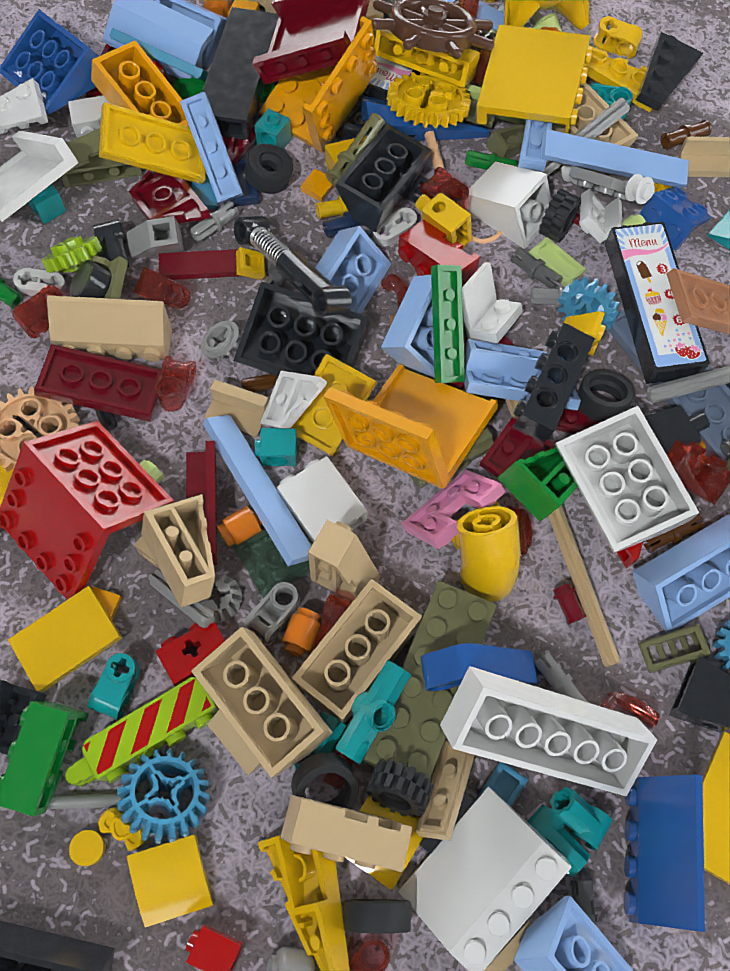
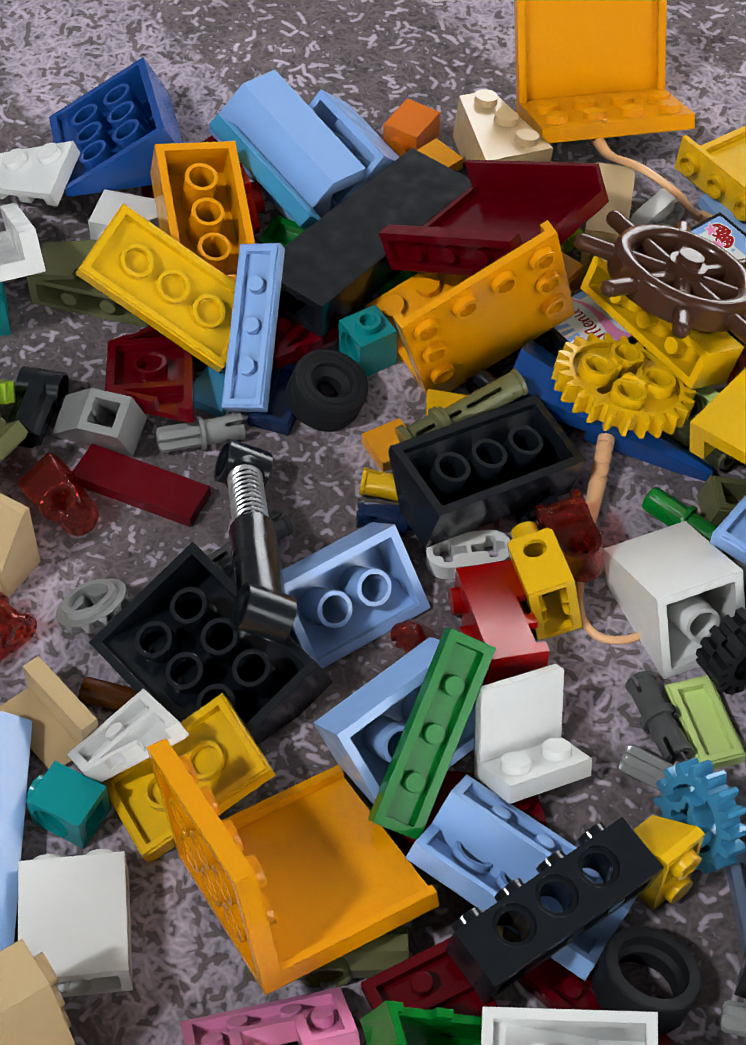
camera: 30 degrees right, 15 degrees down
(250, 263) = (210, 514): yellow tile -> none

